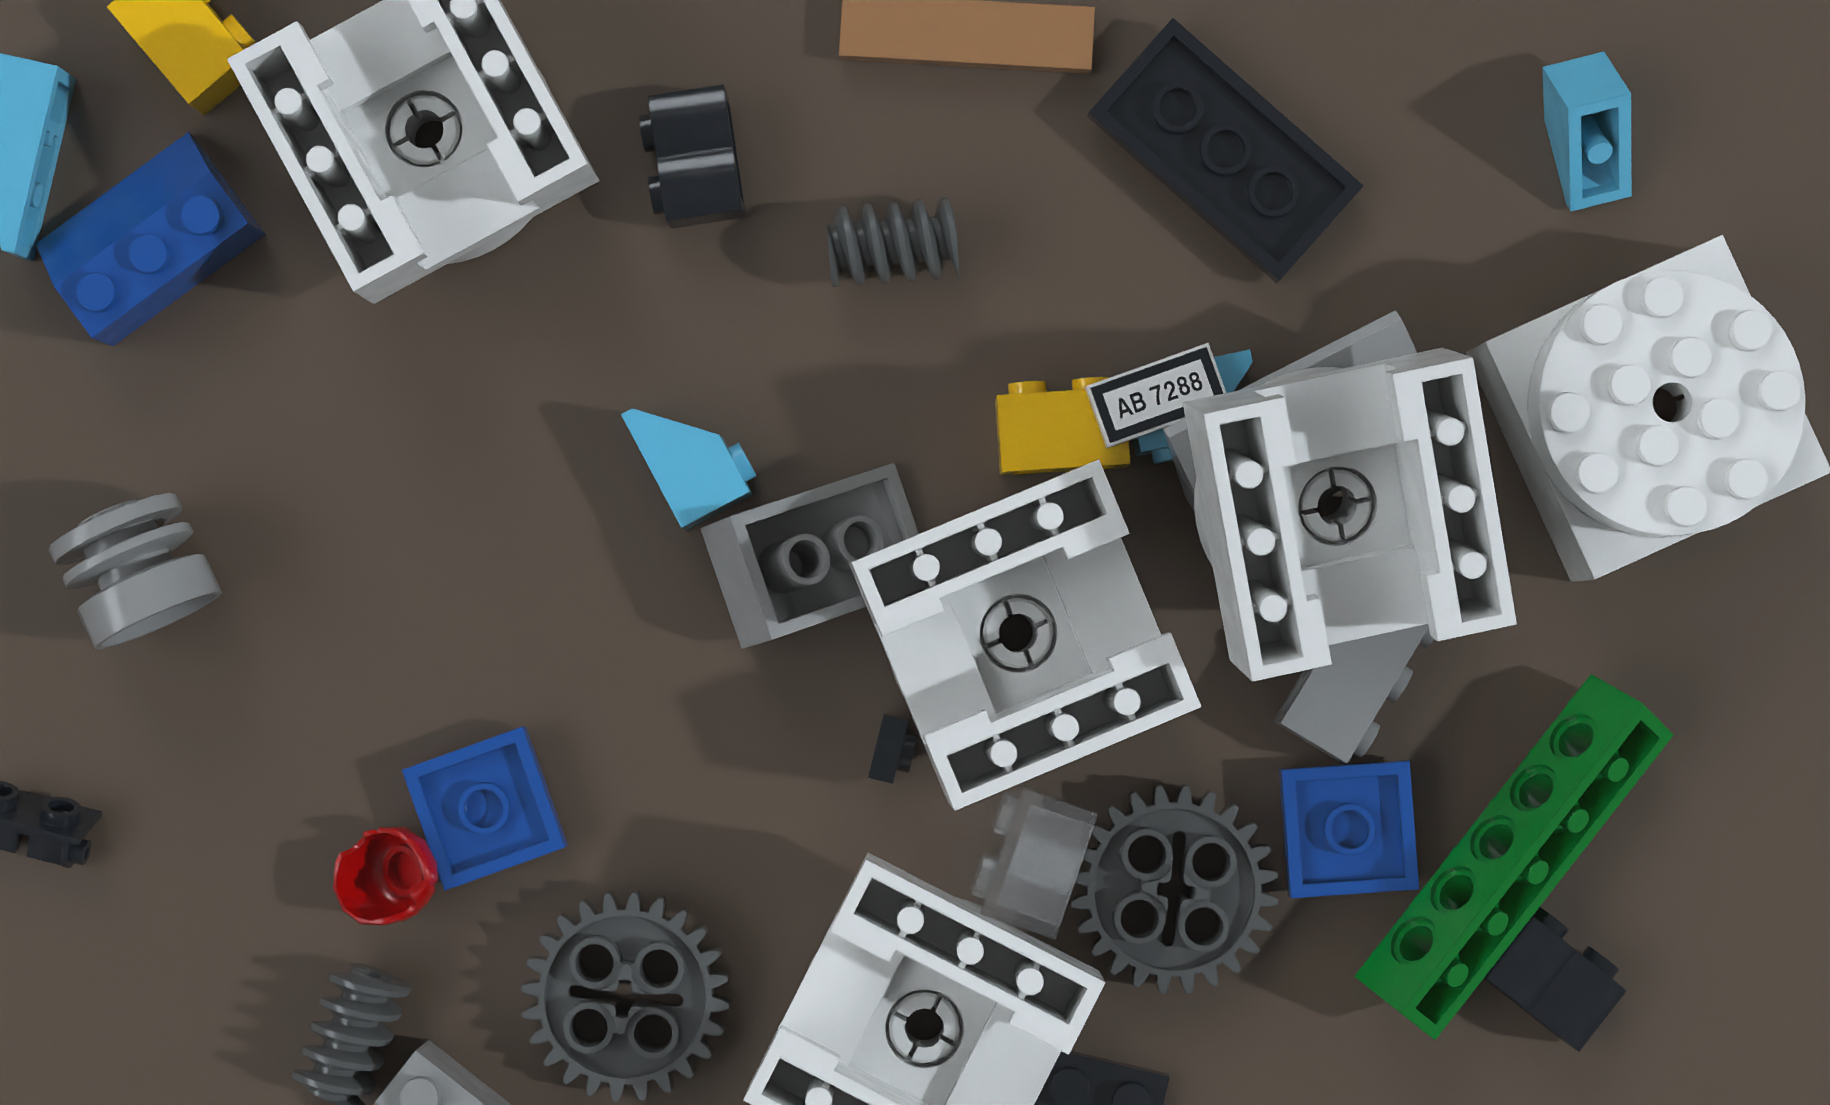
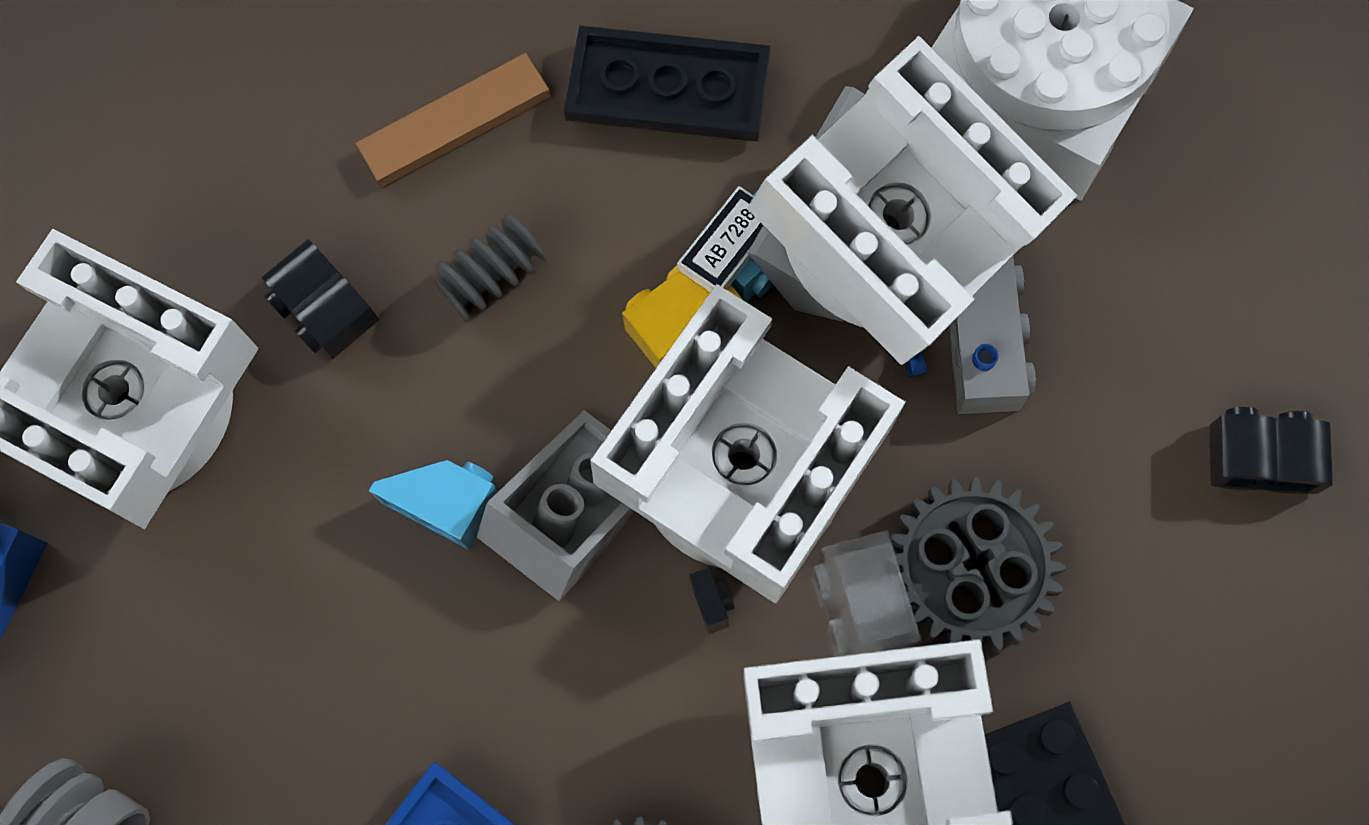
camera: 30 degrees left, 15 degrees down
(1342, 696) = (989, 348): none -> blue piece
(1348, 829) = (1061, 445): blue plate -> none
(1514, 855) = (1185, 388): green brick -> none

